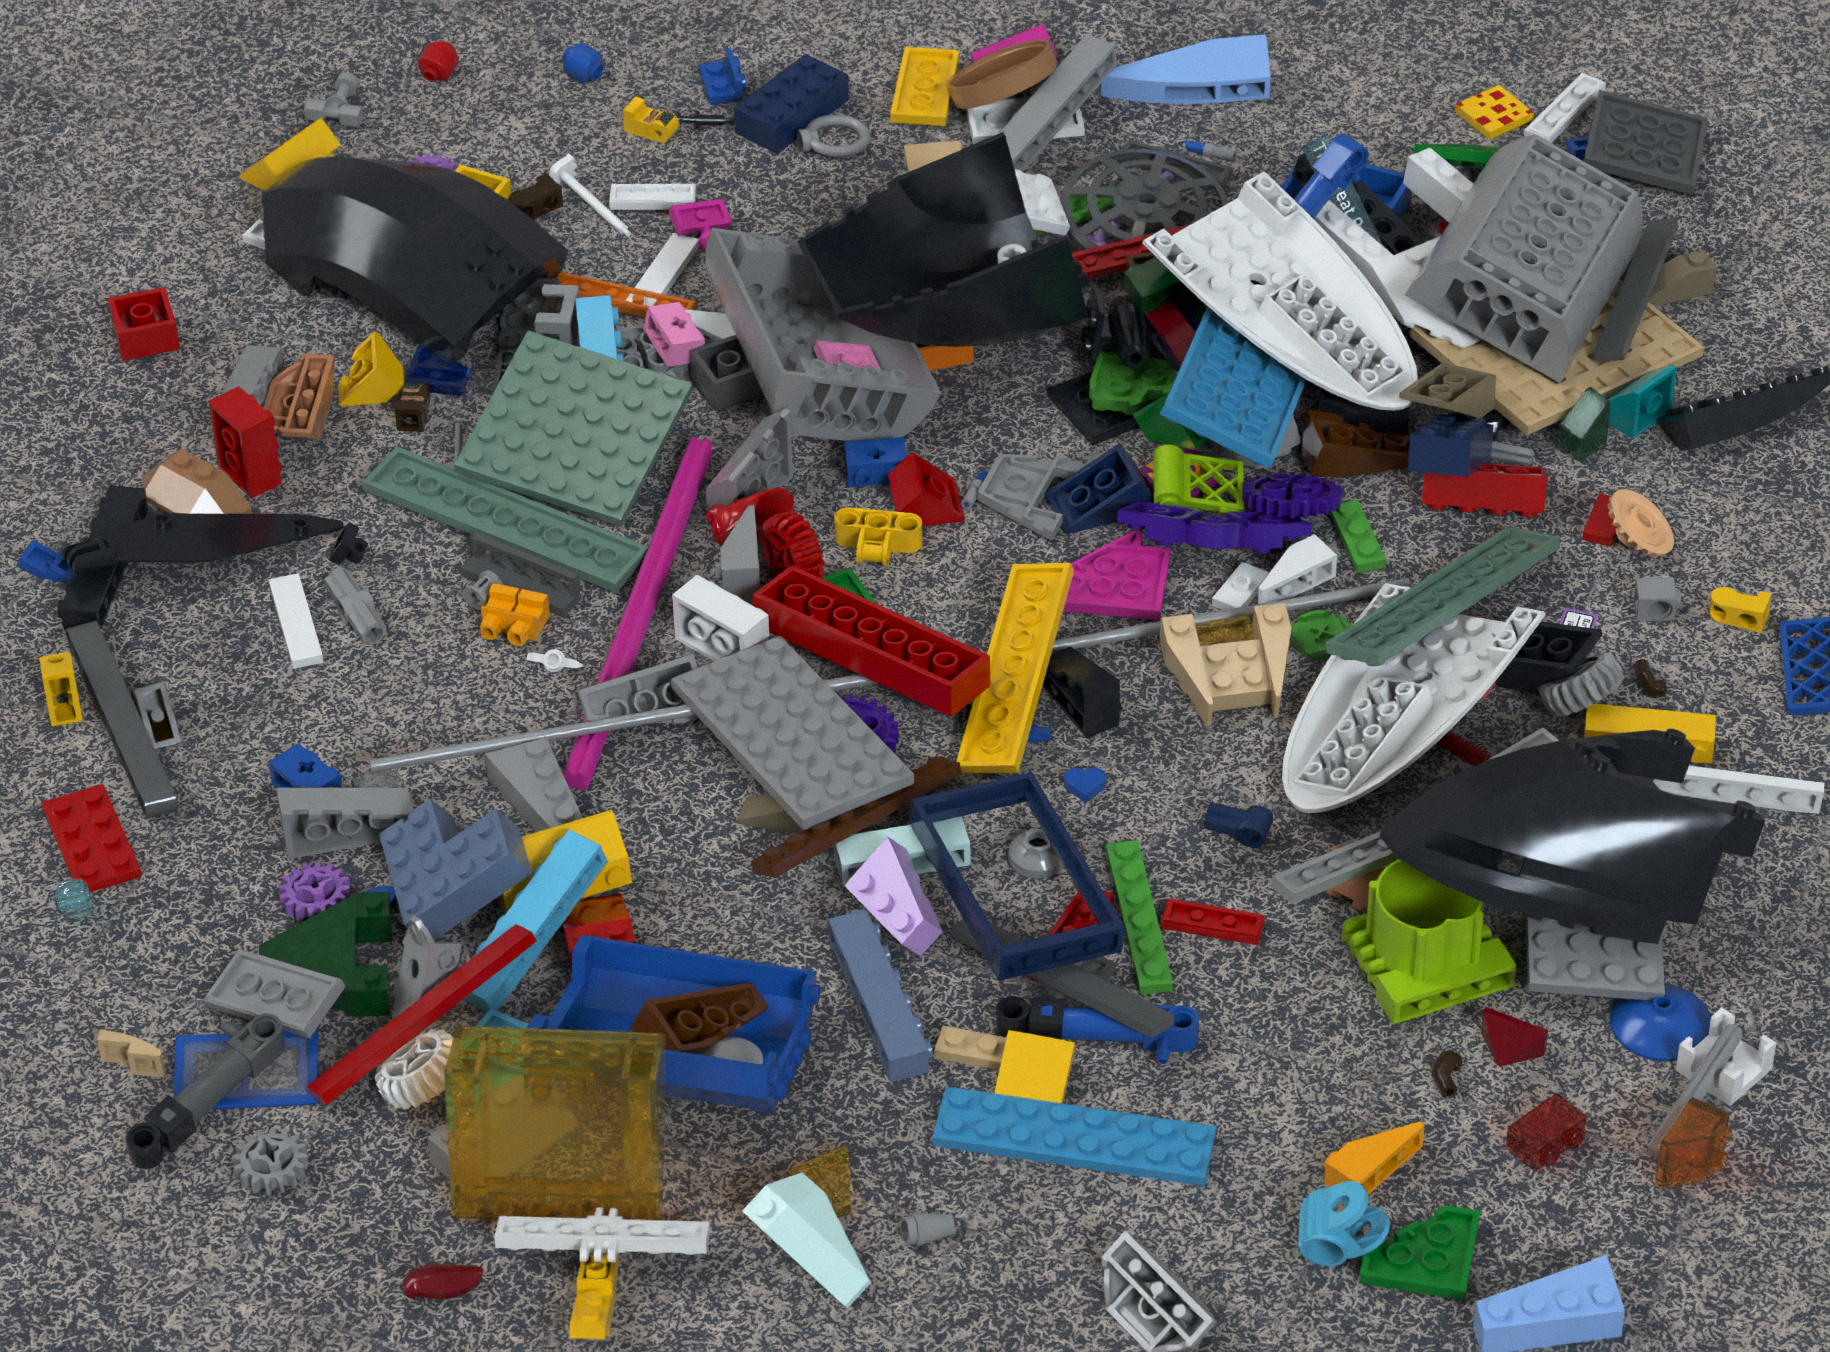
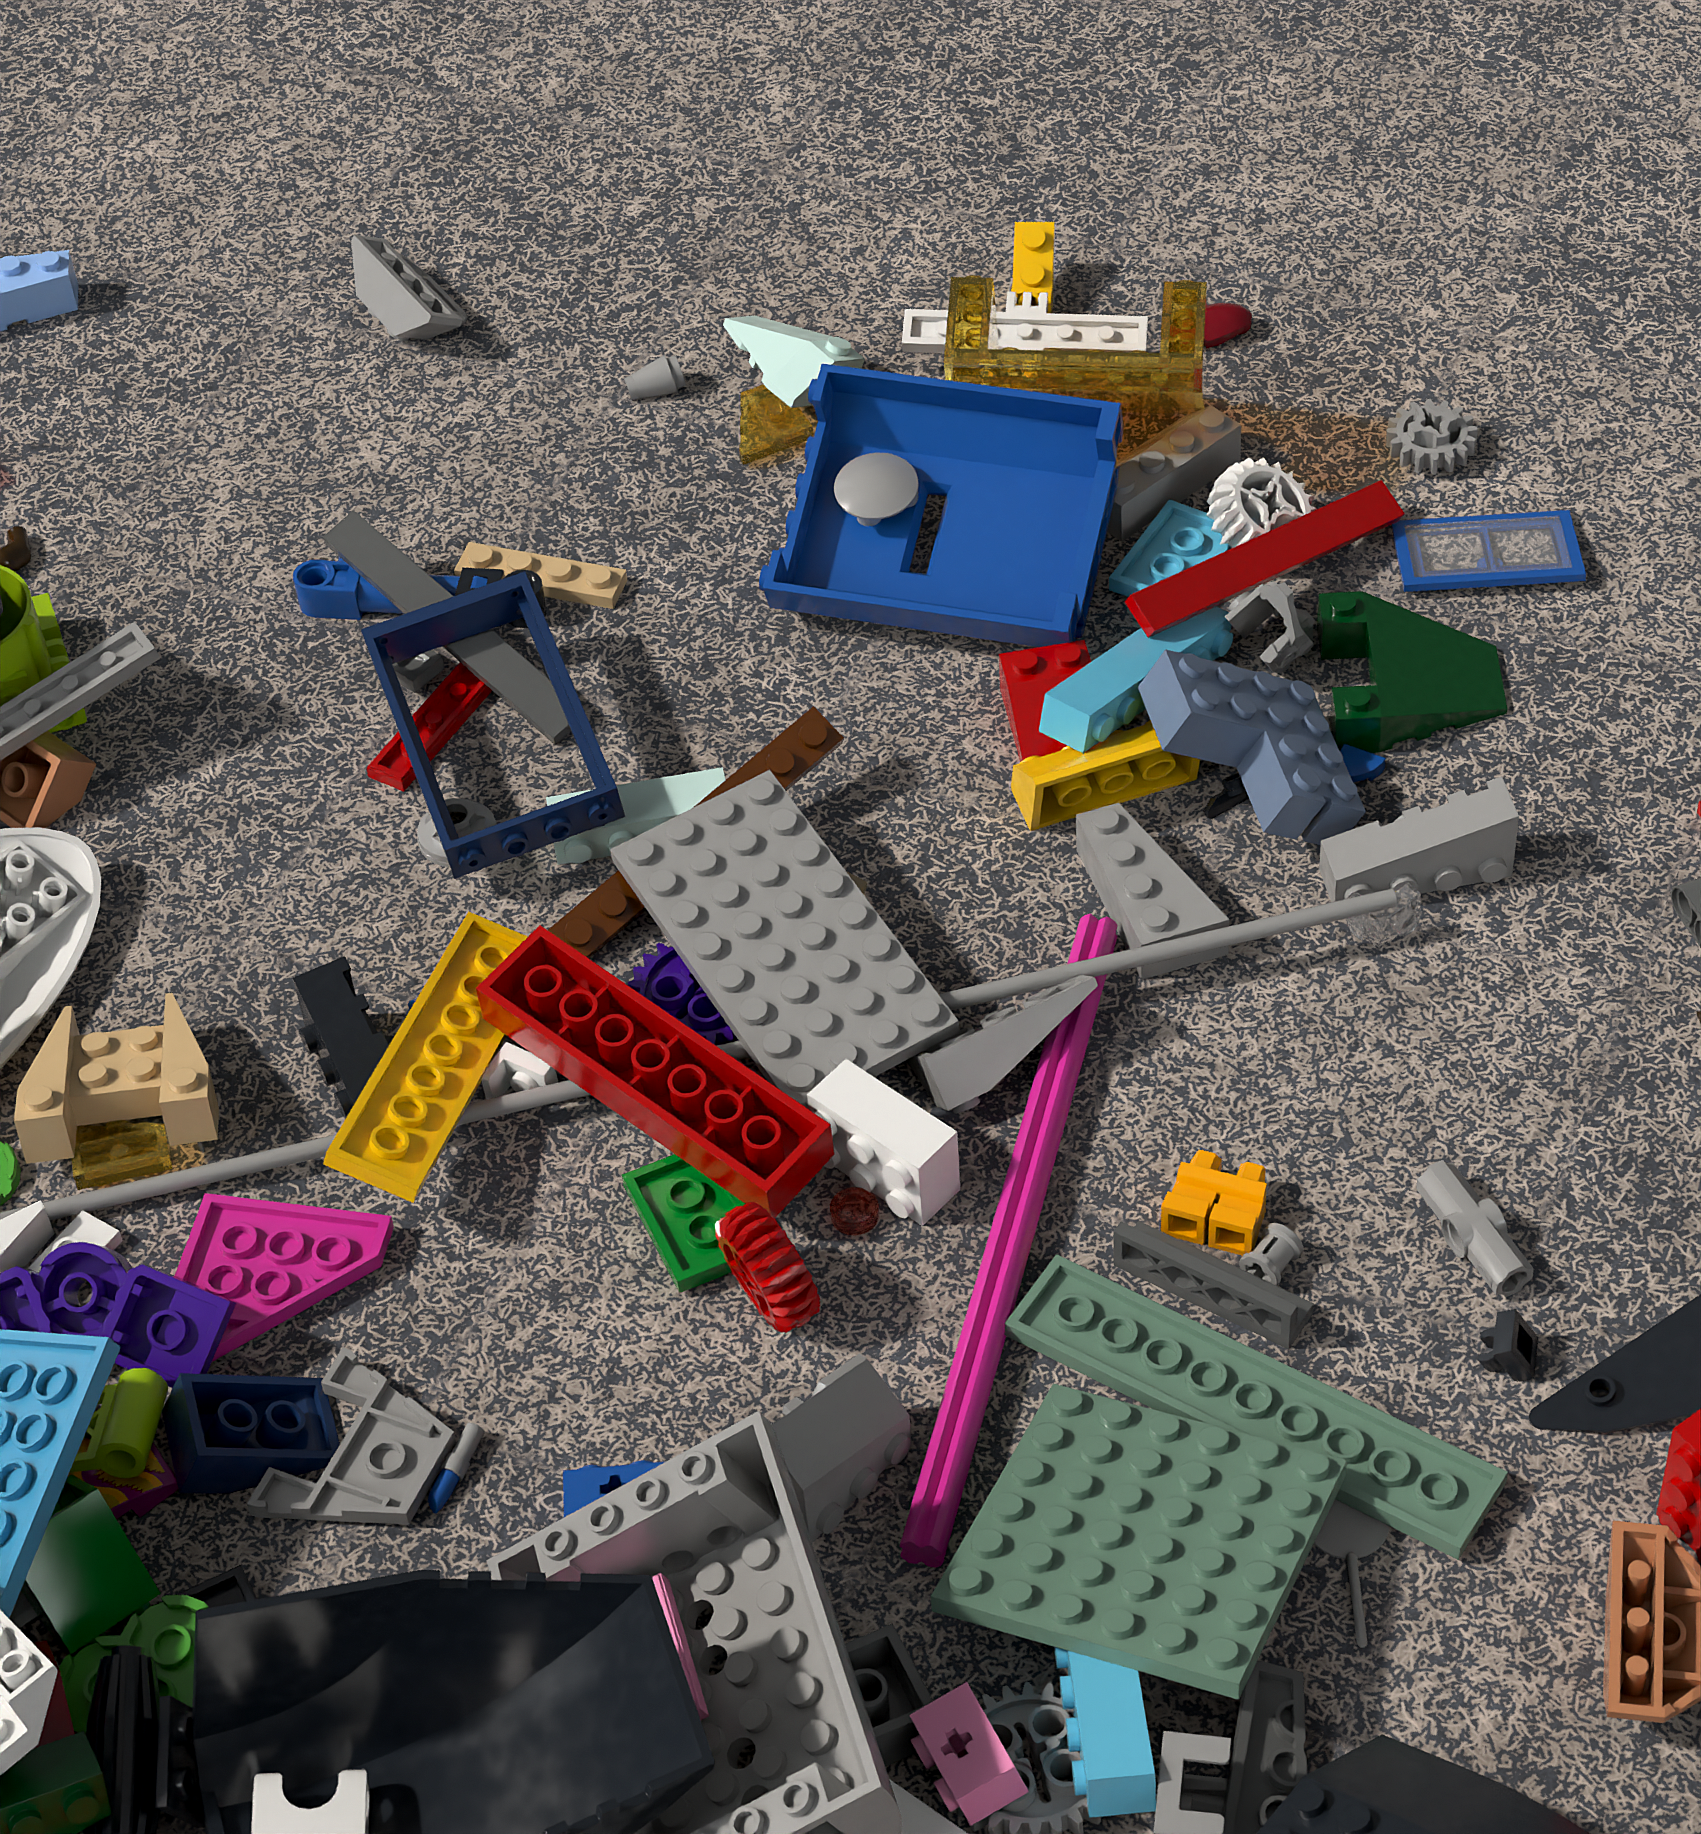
camera: 175 degrees left, 5 degrees up
(140, 1055) = (1648, 560): tan slope -> none
(175, 1119) = (1560, 471): dark grey piece -> none
(266, 985) = (1468, 608): light grey piece -> none
(295, 621) = (1568, 1219): white tile -> none
(302, 769) = (1492, 926): blue brick -> none
(313, 890) = (1444, 760): medium lavender gear -> none
(373, 376) = (1536, 1718): yellow slope -> none
(413, 402) = (1446, 1658): dark brown leg -> none
(438, 371) = (1421, 1725): clear blue wing -> none
(554, 660) = (1144, 1137): white piece -> none
(700, 1017) = (923, 514): reddish brown wedge -> none
(740, 559) = (854, 1248): light grey slope -> none
(766, 503) = (819, 1351): red hair -> none
(877, 533) = (630, 1333): yellow piece -> none
(879, 995) = (689, 630): sand blue brick -> none
(894, 896) = (655, 723): lavender wedge -> none
(925, 491) = (539, 1431): red slope -> none
(1035, 1067) = (505, 534): yellow tile -> none
(1074, 1136) = (472, 485): dark azure plate -> none
(1084, 783) = (373, 932): blue tile -> none
(1139, 917) = (339, 748): bright green plate -> none
(1213, 921) = (245, 739): red tile -> none
(1247, 825) = (165, 855): dark blue piece -> none
(1330, 1236) = (202, 359): medium azure piece -> none
(1373, 1157) = (131, 445): light orange slope -> none
(1427, 1255) = (102, 357): green plate -> none

